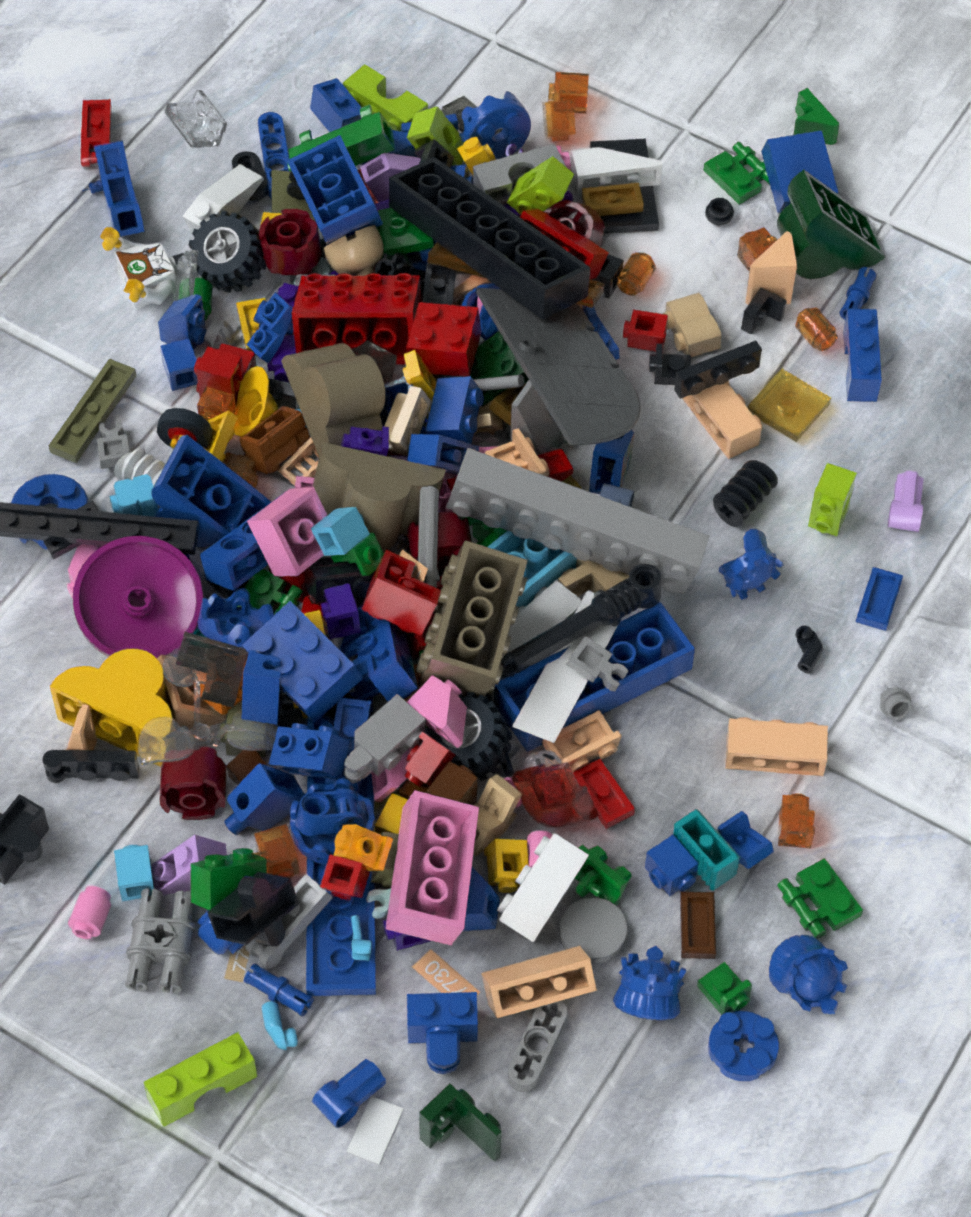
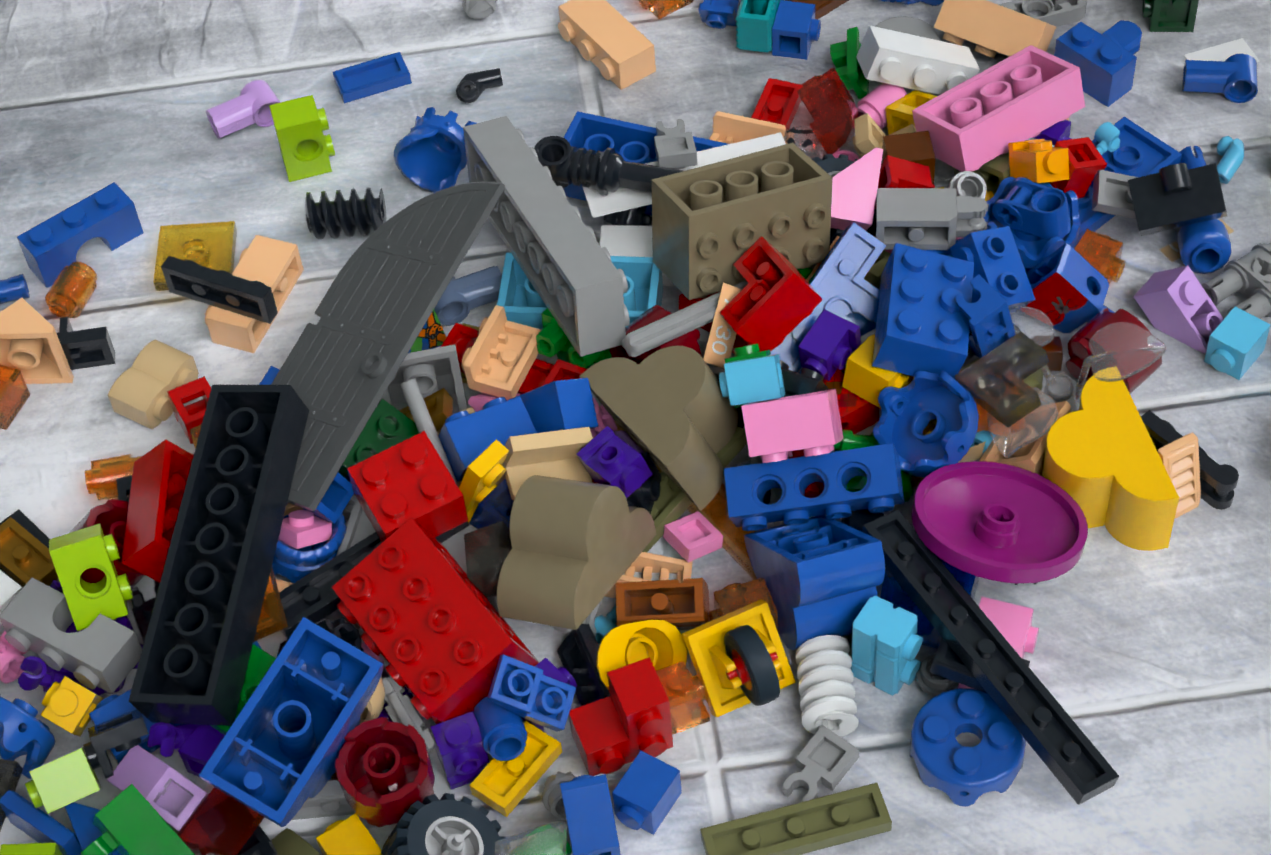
camera: 125 degrees left, 5 degrees down
(220, 875) = (1168, 248): green brick -> none
(389, 800) = (968, 184): none -> light grey plate
(666, 365) = (227, 368): black bracket -> none

